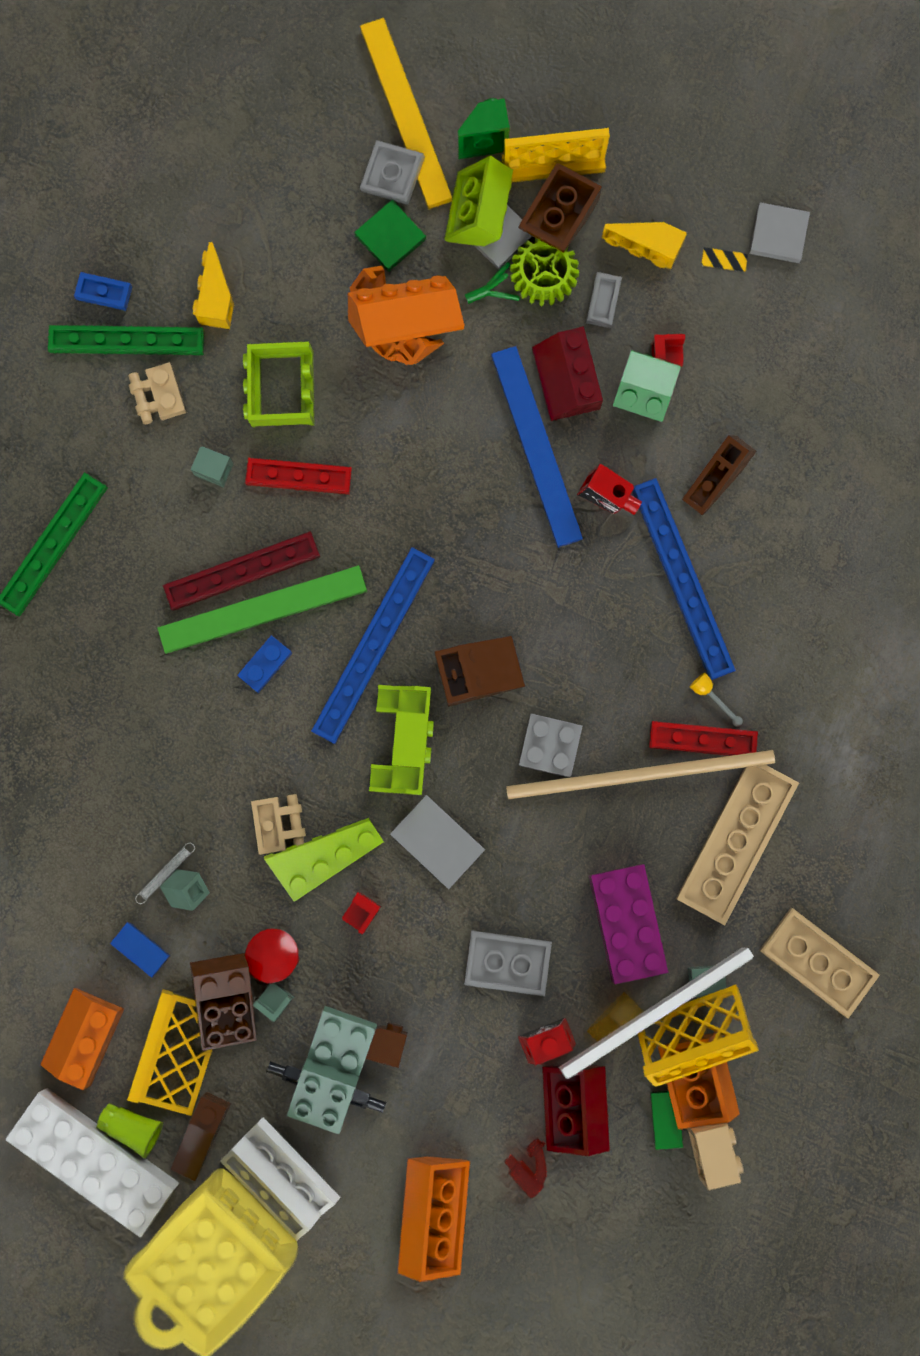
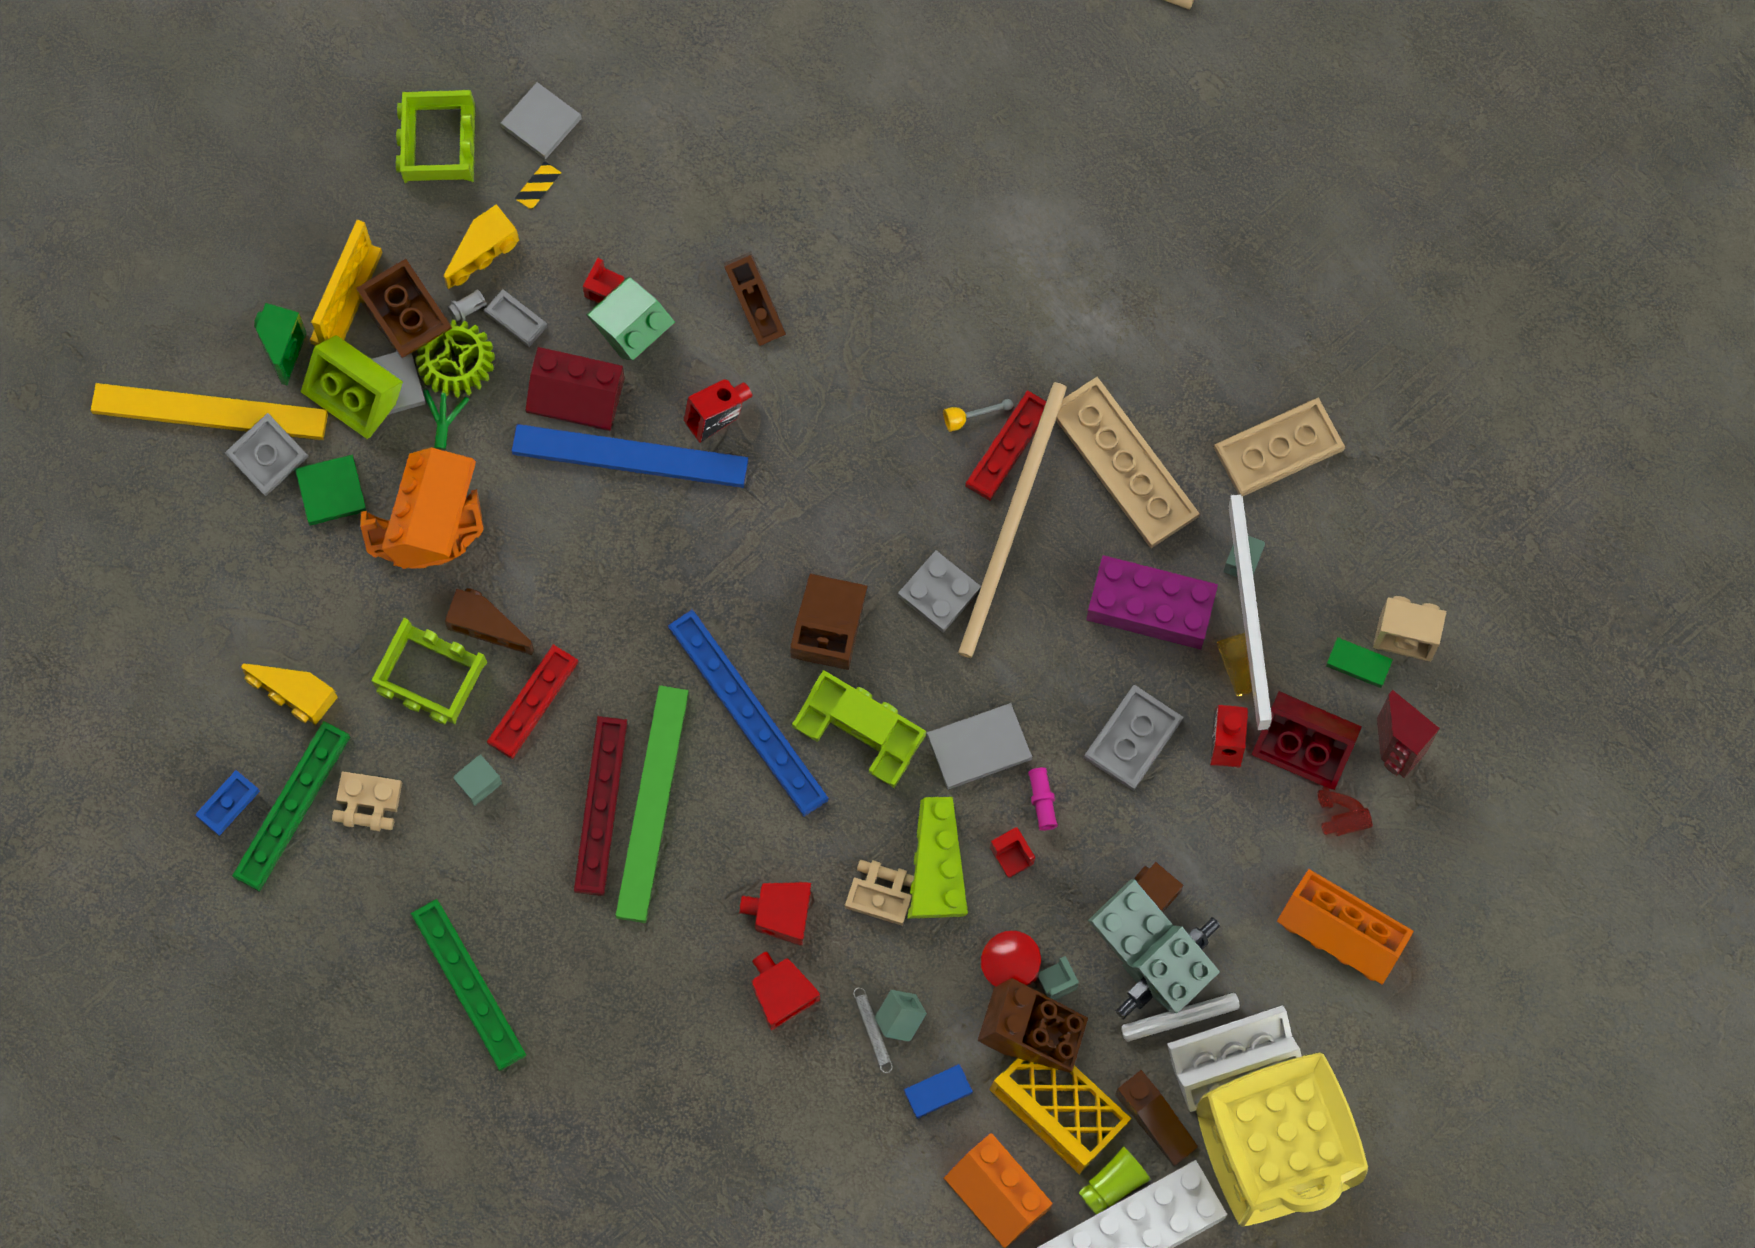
camera: 65 degrees left, 10 degrees down
(159, 786) = (781, 990): none -> red torso
(222, 752) = (780, 910): none -> red torso
(264, 664) = (710, 828): blue plate -> none
(282, 1104) = (1185, 1016): none -> white axle
(343, 401) = (480, 619): none -> reddish brown slope
(418, 915) = (1042, 799): none -> dark pink pin
(593, 257) = (466, 306): none -> light grey pin
(614, 1194) = (1403, 735): none -> dark red slope
(683, 580) = (842, 384): blue tile -> none
(702, 1096) = (1335, 611): orange slope -> none
(707, 1054) = (1309, 589): yellow fence -> none
(710, 137) = (407, 135): none -> lime window

